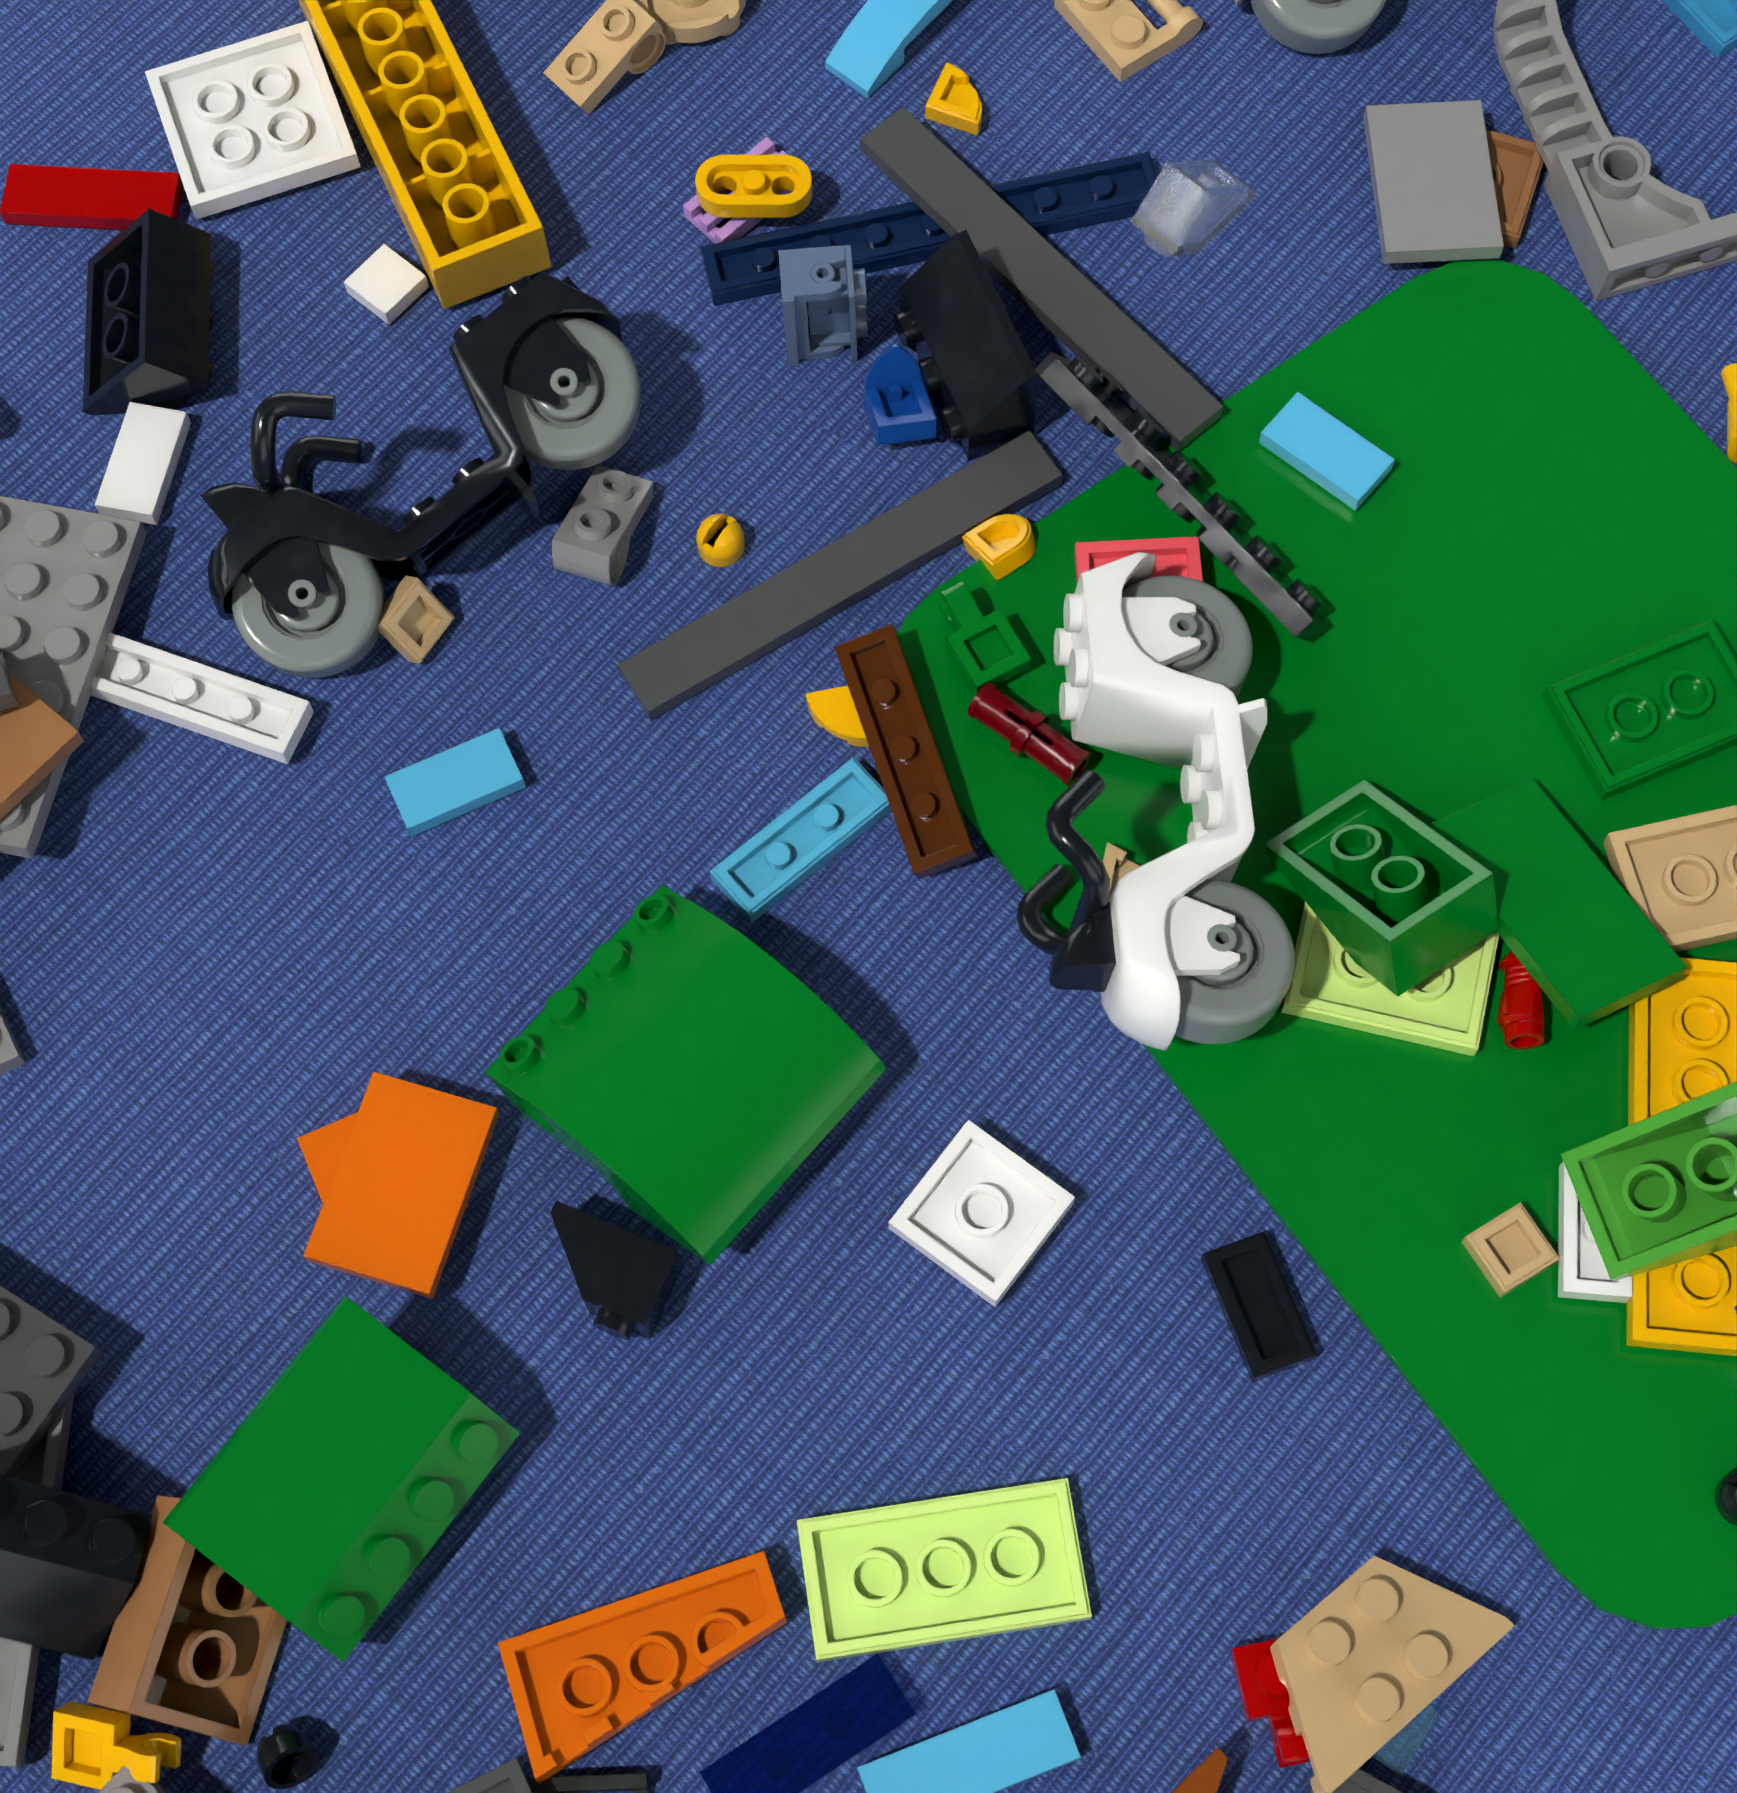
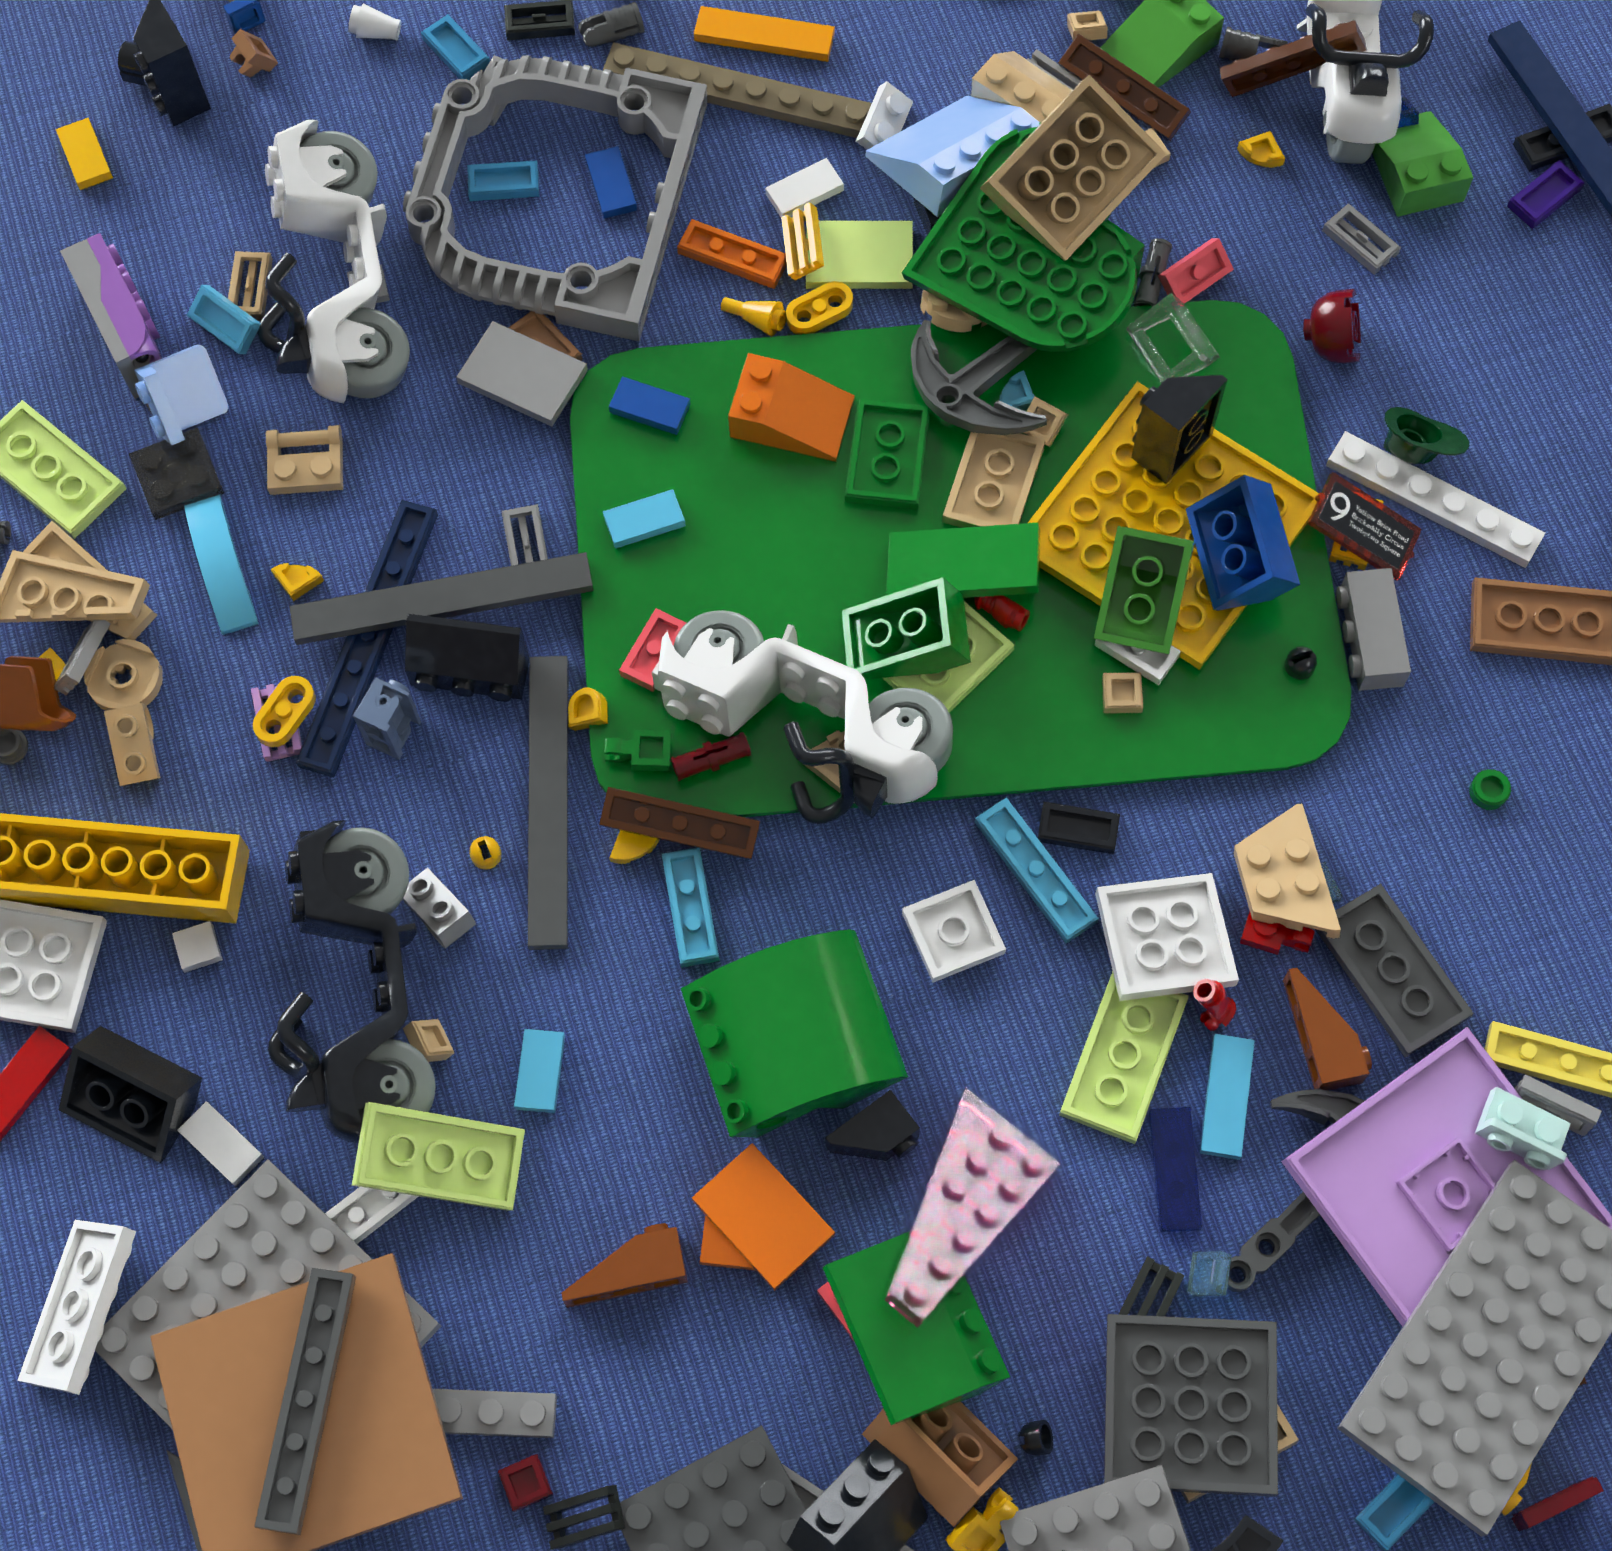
camera: 60 degrees left, 0 degrees up
(245, 1056) = (638, 1266): none -> dark orange slope
(247, 716) = (438, 1156): none -> yellowish green tile
(590, 1457) = (972, 1196): none -> clear pink wing
(622, 1660) = (1083, 1242): orange wing -> none
(898, 399) = (468, 713): blue plate -> none
(1095, 1659) = (1214, 999): none -> red arm
(1151, 1282) = (1036, 870): none -> medium azure tile
(1160, 1530) = (1165, 936): none -> white plate
(1190, 206) = (452, 498): clear slope -> none
(1219, 341) = (521, 513): none -> light grey tile
(1254, 562) = (688, 589): black wing -> none
(1501, 361) = (649, 405): none -> blue tile
(1626, 535) = (789, 409): none -> orange slope

